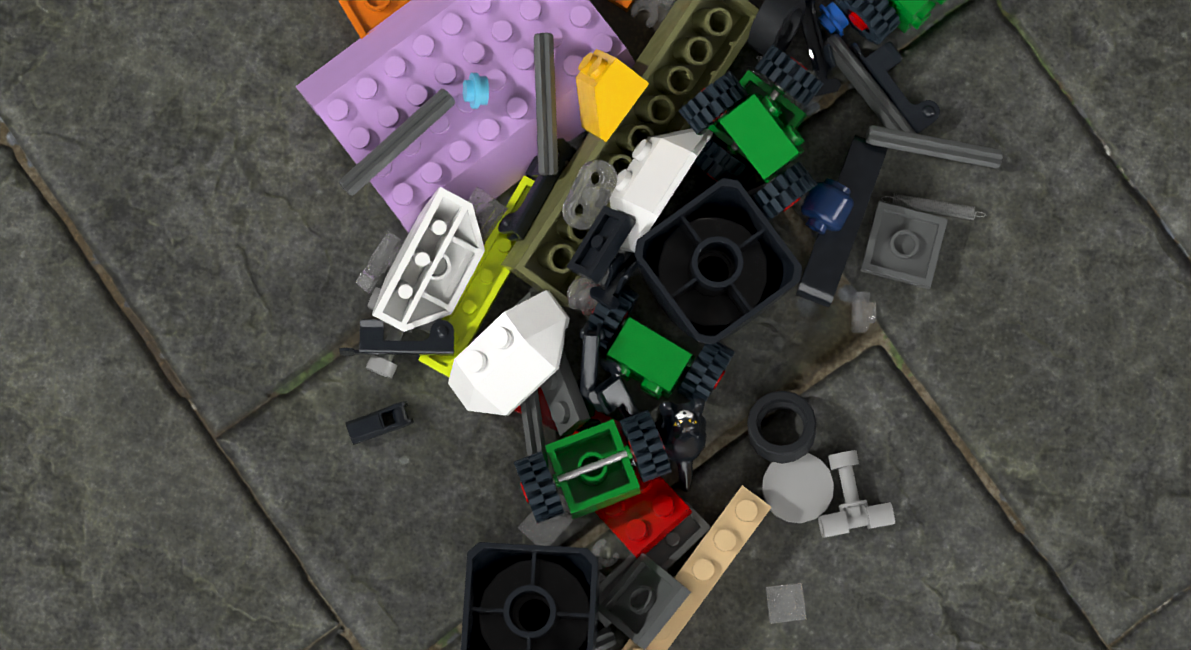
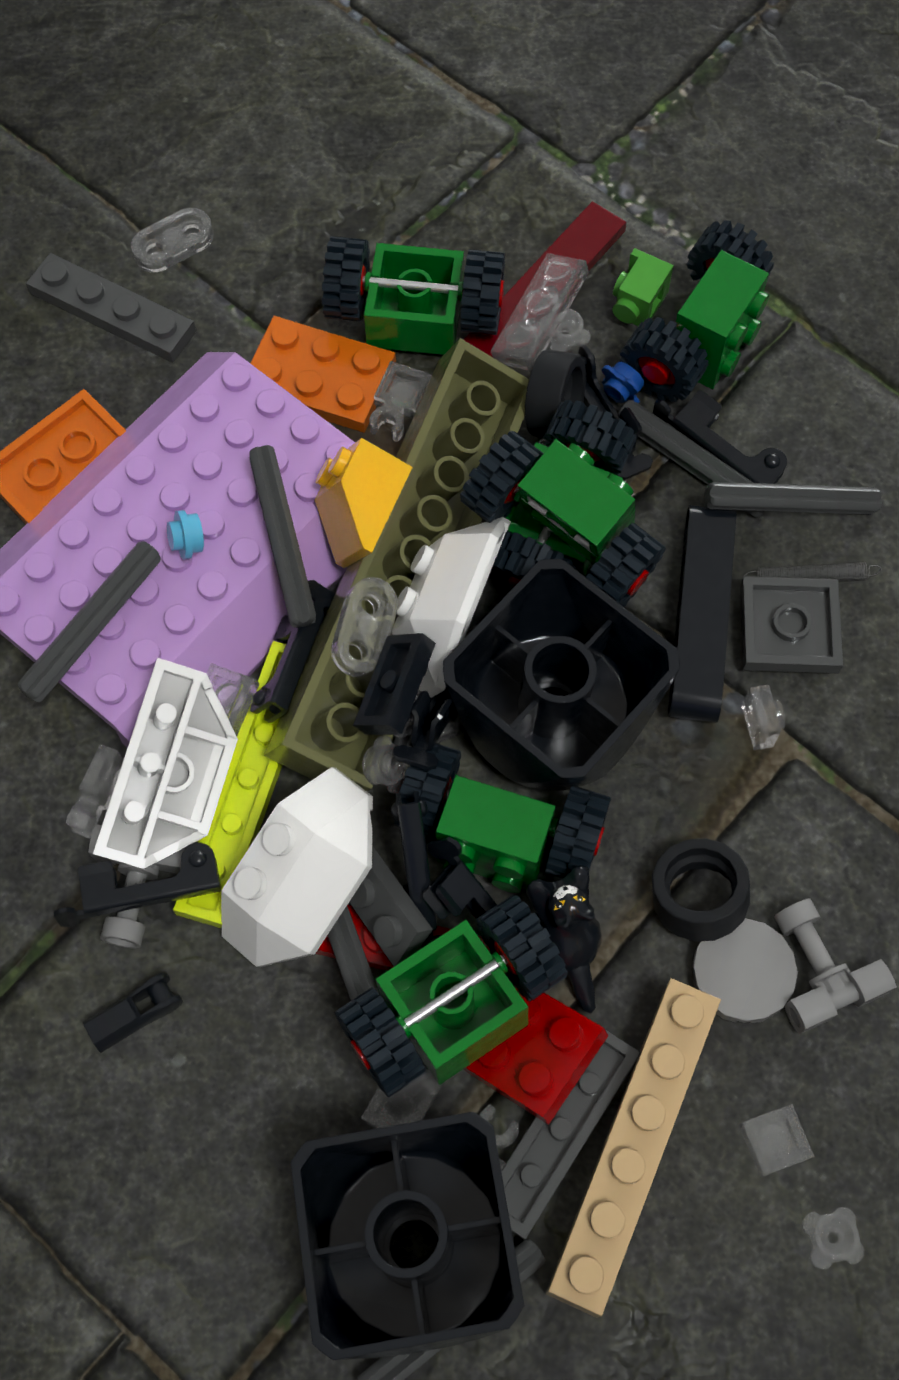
camera: 15 degrees left, 15 degrees down
(643, 601) = (574, 1182): dark grey plate -> none
(827, 206) = (683, 584): dark blue head -> none

